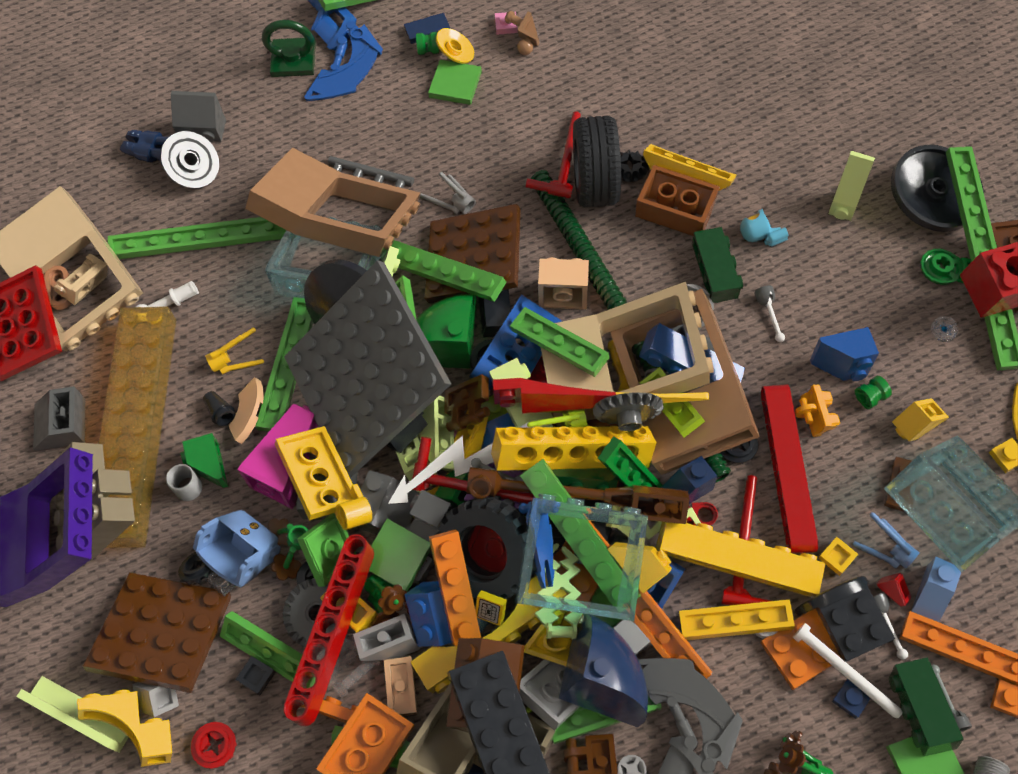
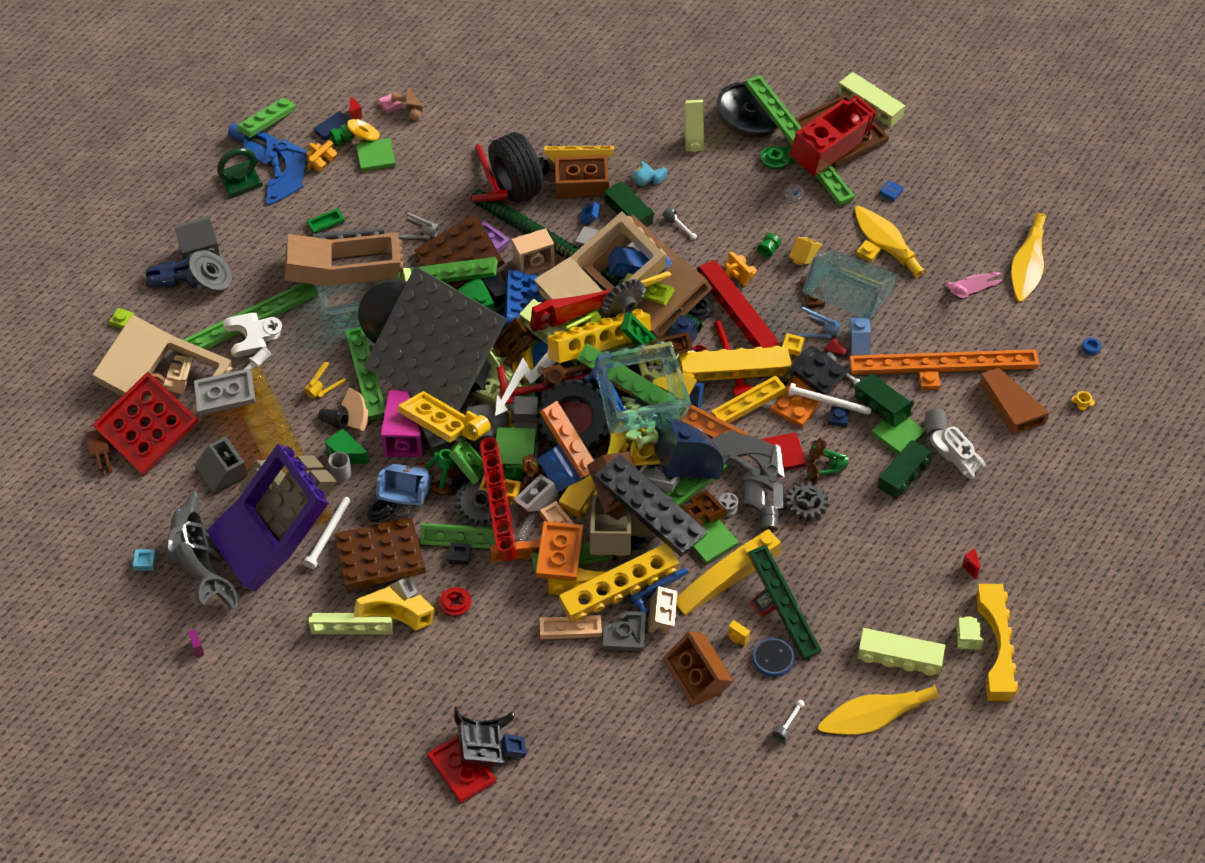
camera: 30 degrees left, 10 degrees down
(74, 181) = (120, 318): none -> lime plate
(103, 327) = (224, 391): none -> light grey plate
(122, 568) = (310, 561): none -> white bar
(192, 259) = (255, 331): none -> white piece
(354, 144) = (325, 221): none -> green tile
(389, 57) = (317, 153): none -> light orange hips
(458, 17) = (355, 109): none -> red slope
(490, 608) = (596, 445): tile -> none
(530, 242) = (498, 239): none -> medium lavender plate
(560, 341) = (556, 279): bright green plate -> none
(641, 287) = (585, 235): none -> light grey panel
(663, 254) = (589, 213): none -> blue plate
(758, 718) = (791, 450): none -> red tile
(846, 354) = (740, 227): blue slope -> none

